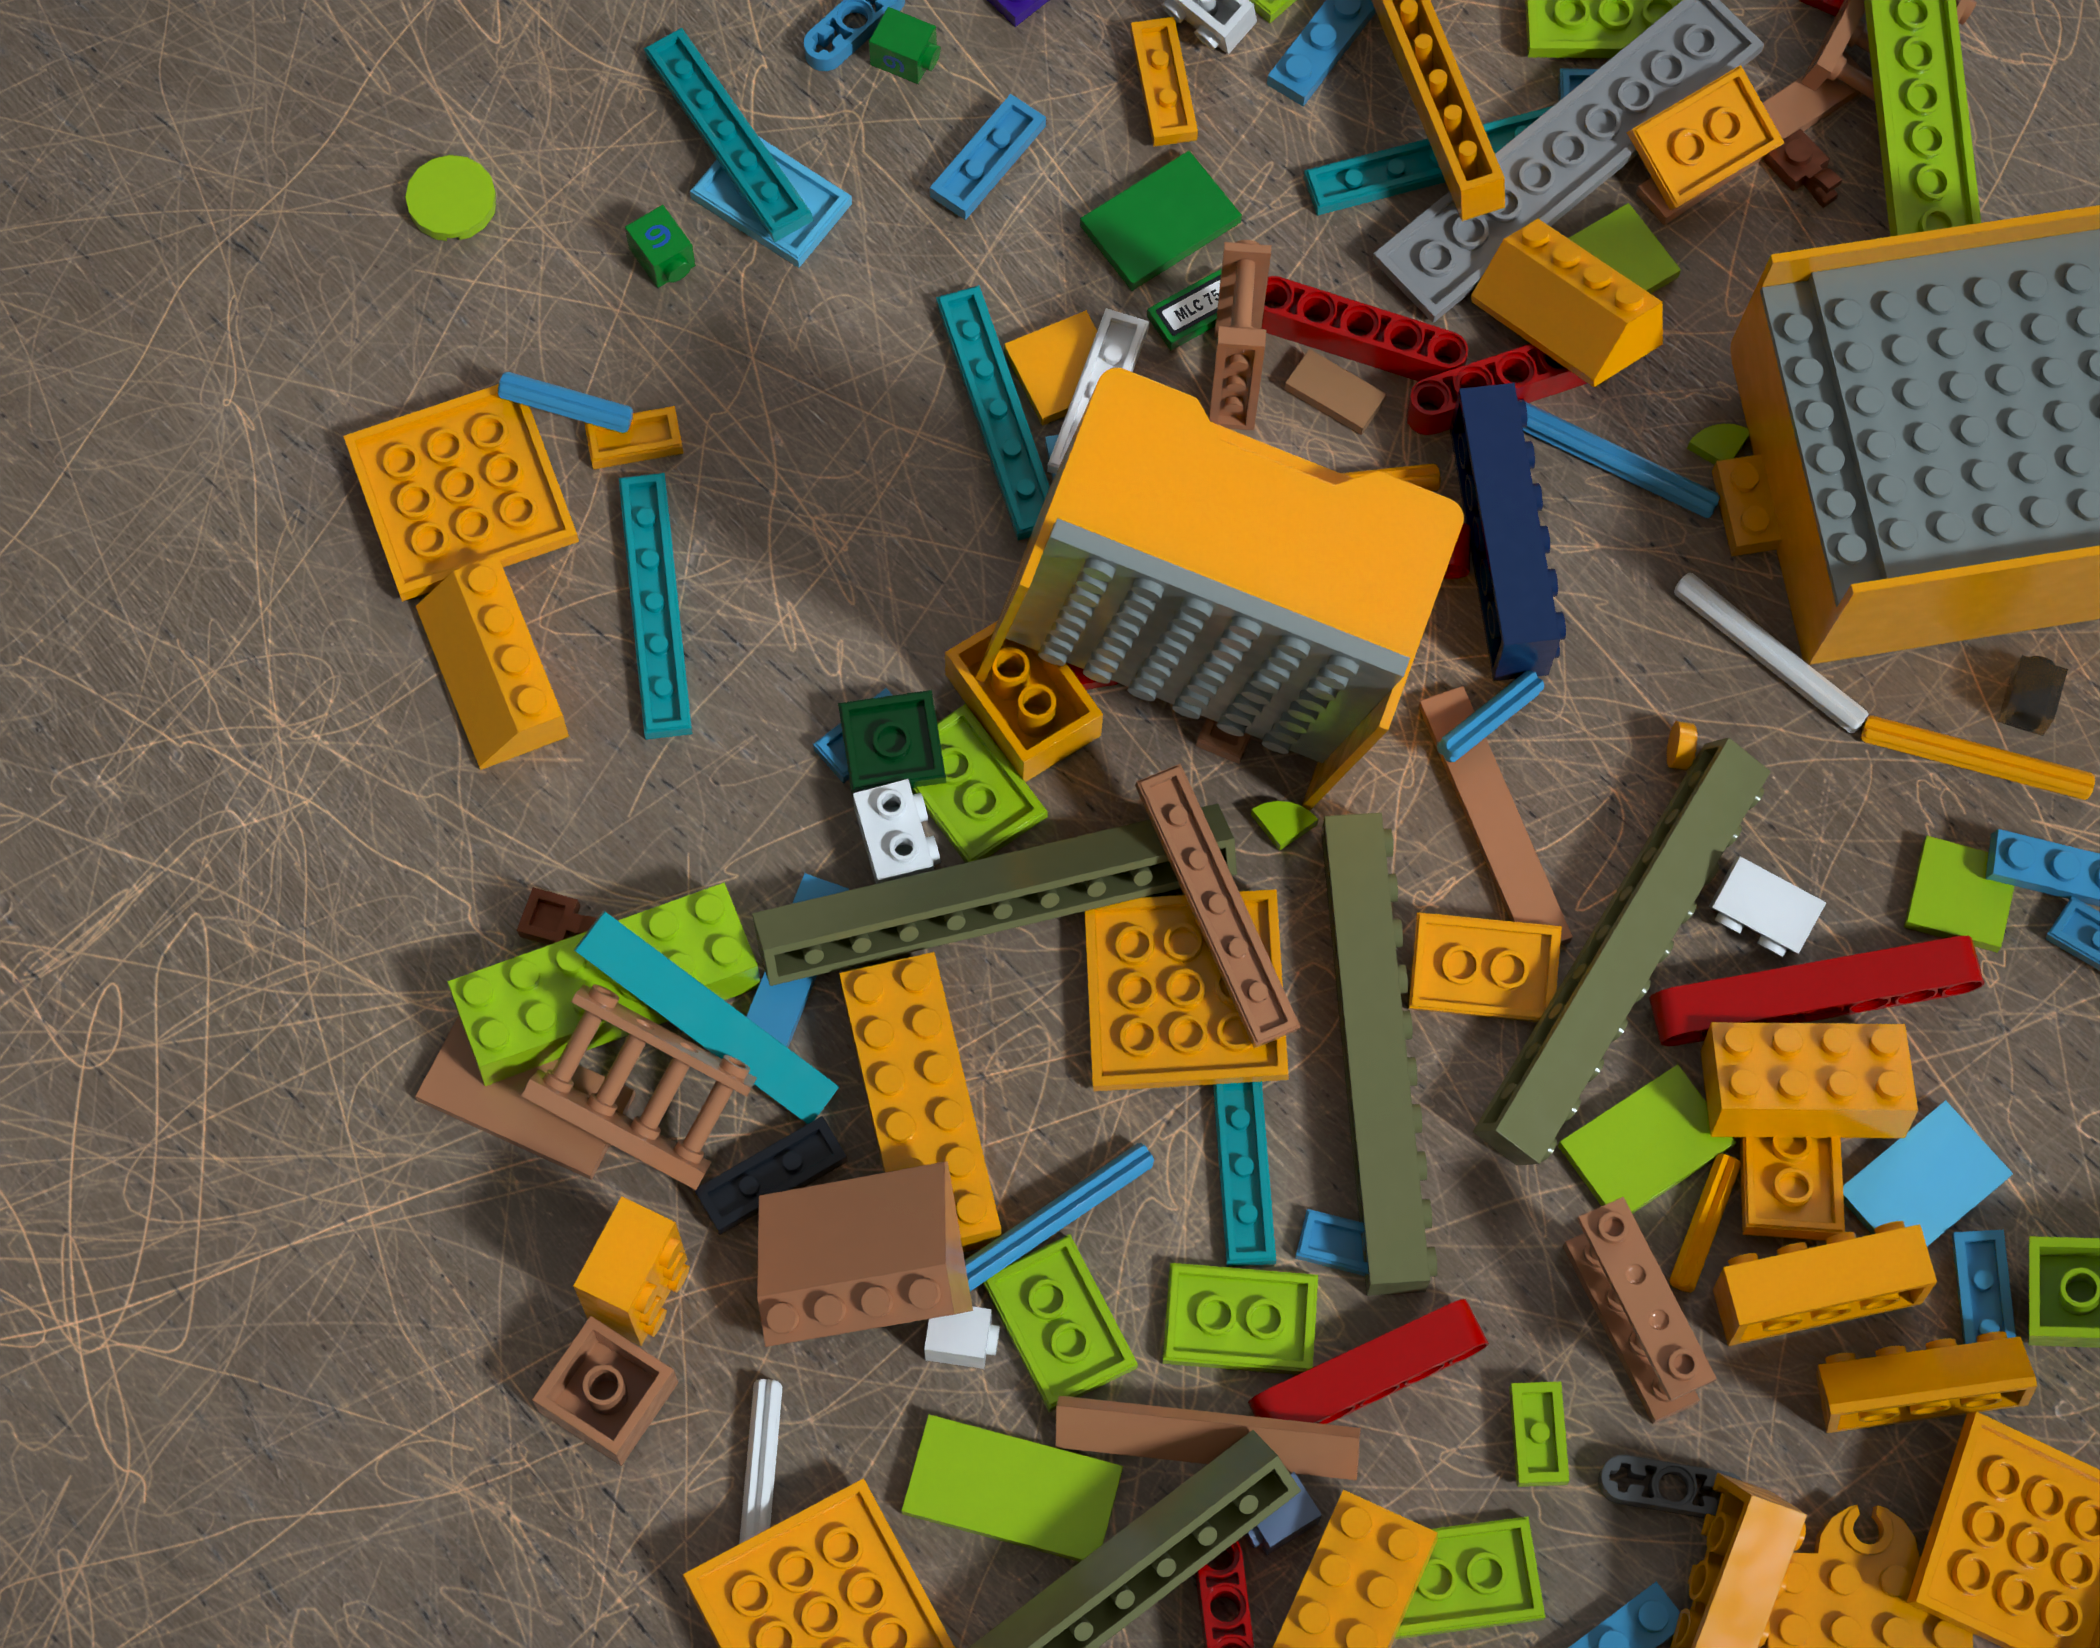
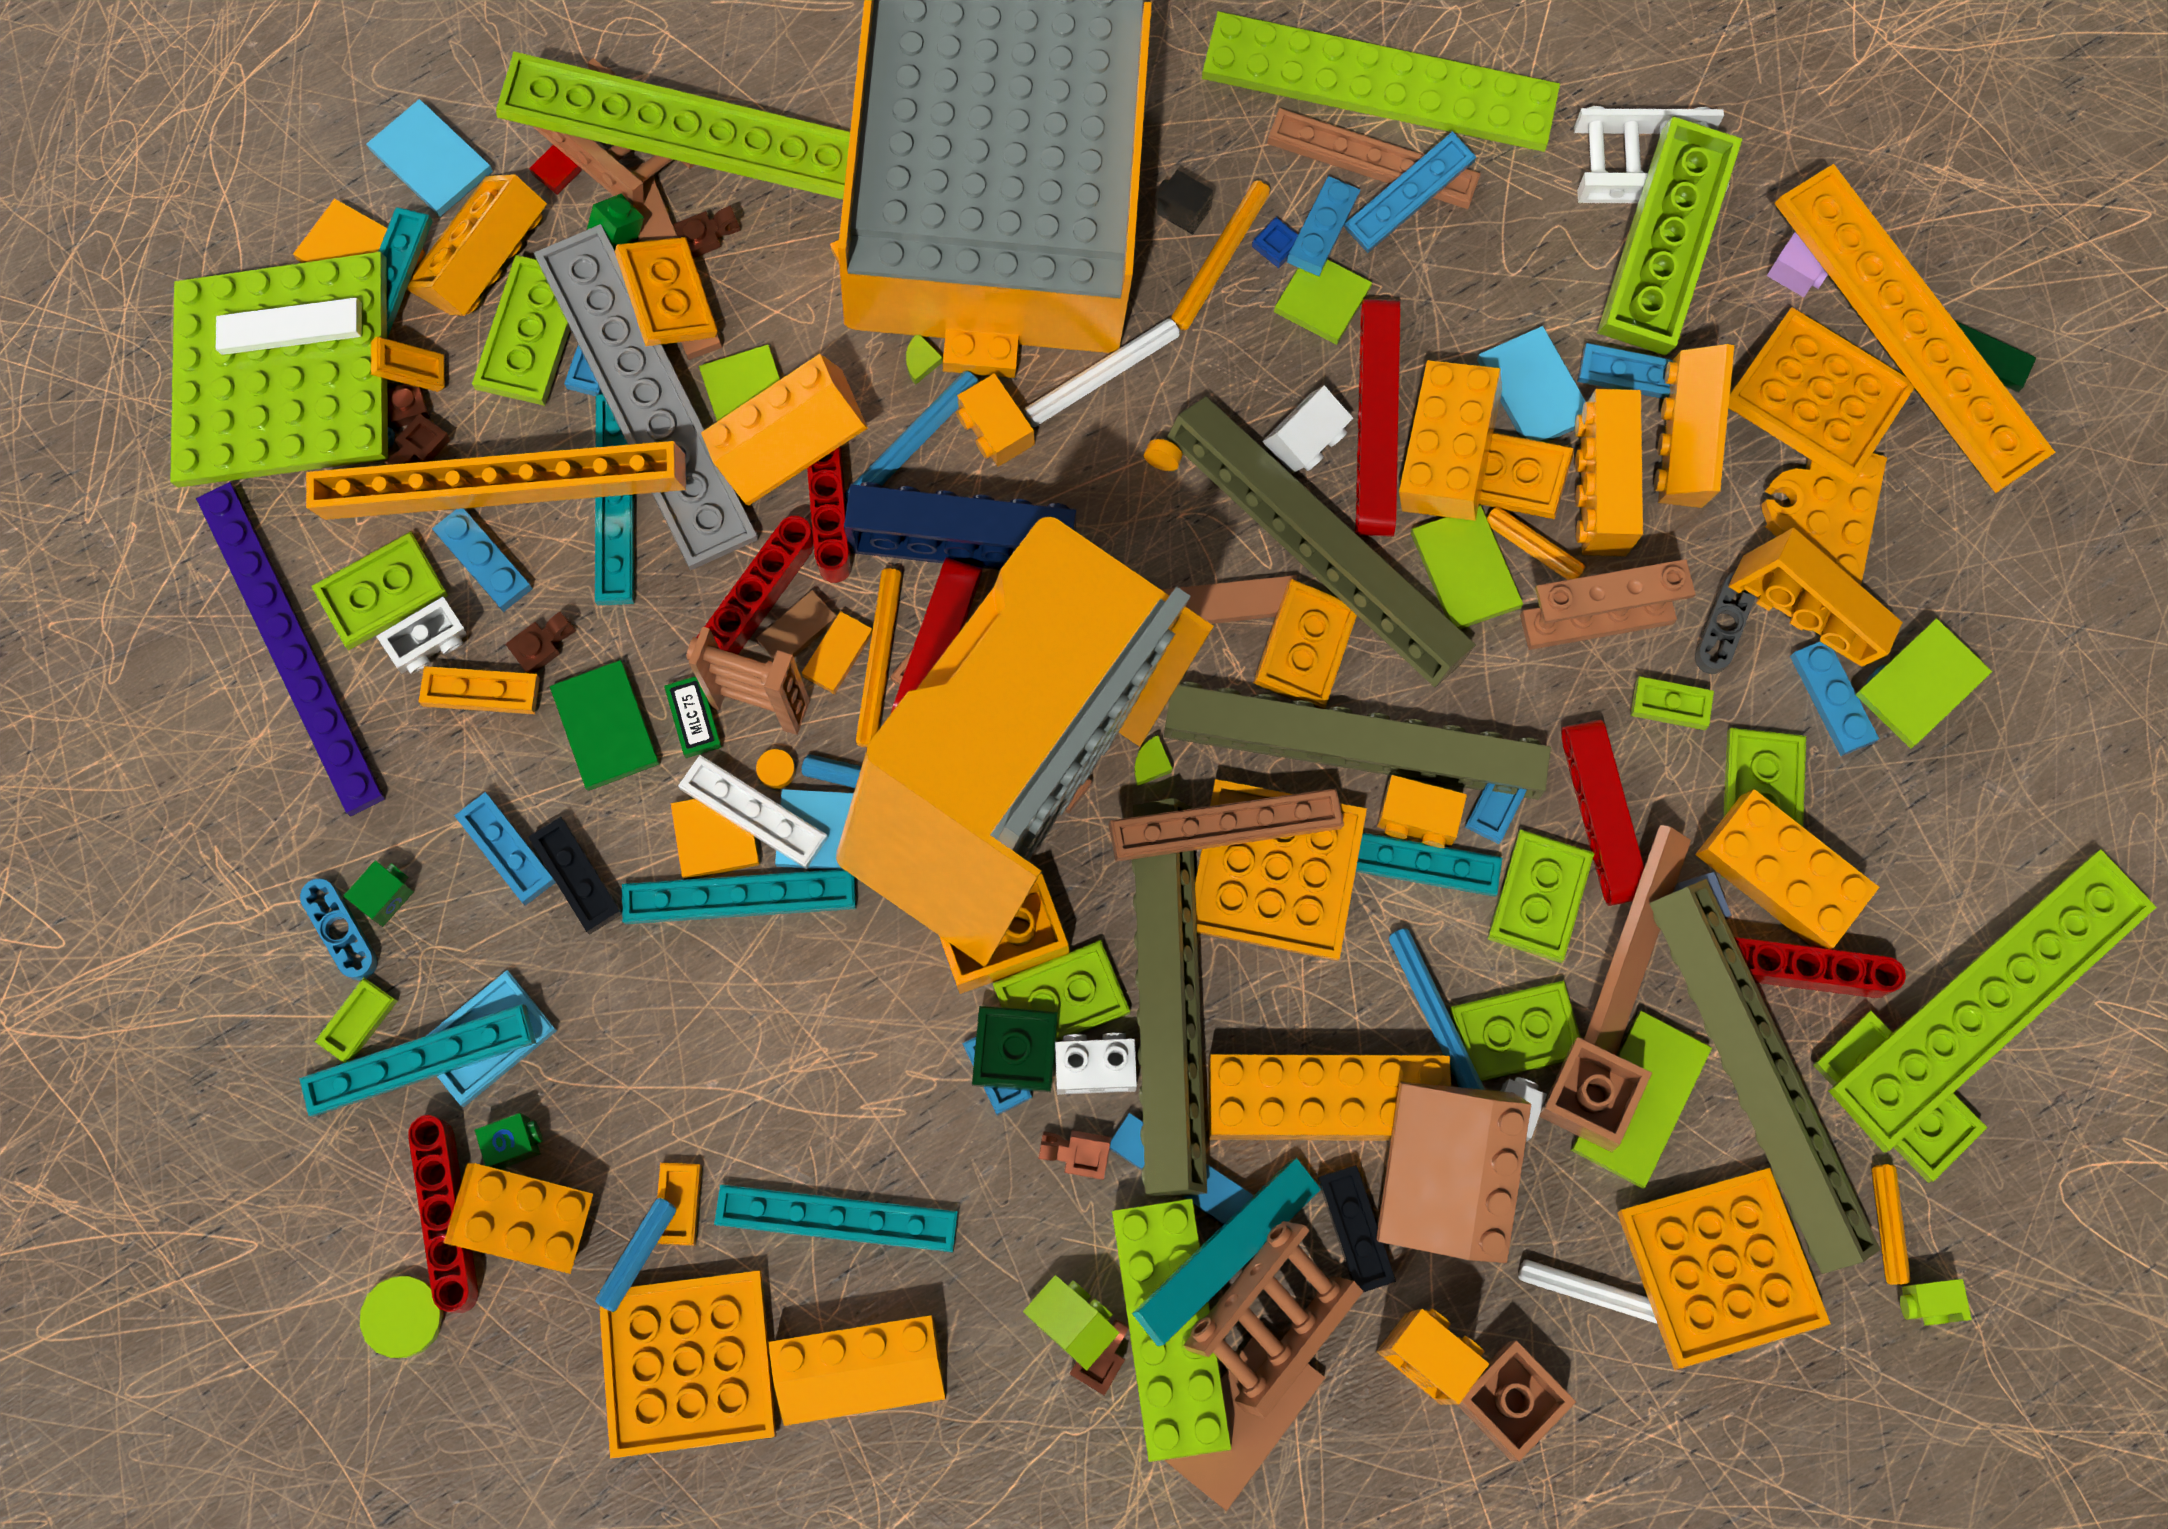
camera: 75 degrees left, 5 degrees up
(556, 222) = (429, 1199): none -> red beam
(576, 271) = (518, 1218): none -> light orange brick
(589, 869) = (1071, 1321): none -> lime brick
(759, 66) = (356, 1021): none -> lime tile
(788, 846) = (1084, 1153): none -> copper plate
(976, 234) = (575, 875): none -> black plate
(995, 1412) = (1595, 1094): none -> nougat brick
(1237, 125) = (535, 645): none -> copper plate
(1306, 1147) = (1421, 812): none -> light orange brick
(1320, 440) = (837, 652): none -> light orange tile
(1664, 542) = (994, 420): none -> light orange brick
(1776, 63) = (618, 218): none -> green brick
(2021, 816) = (1275, 242): none -> blue tile

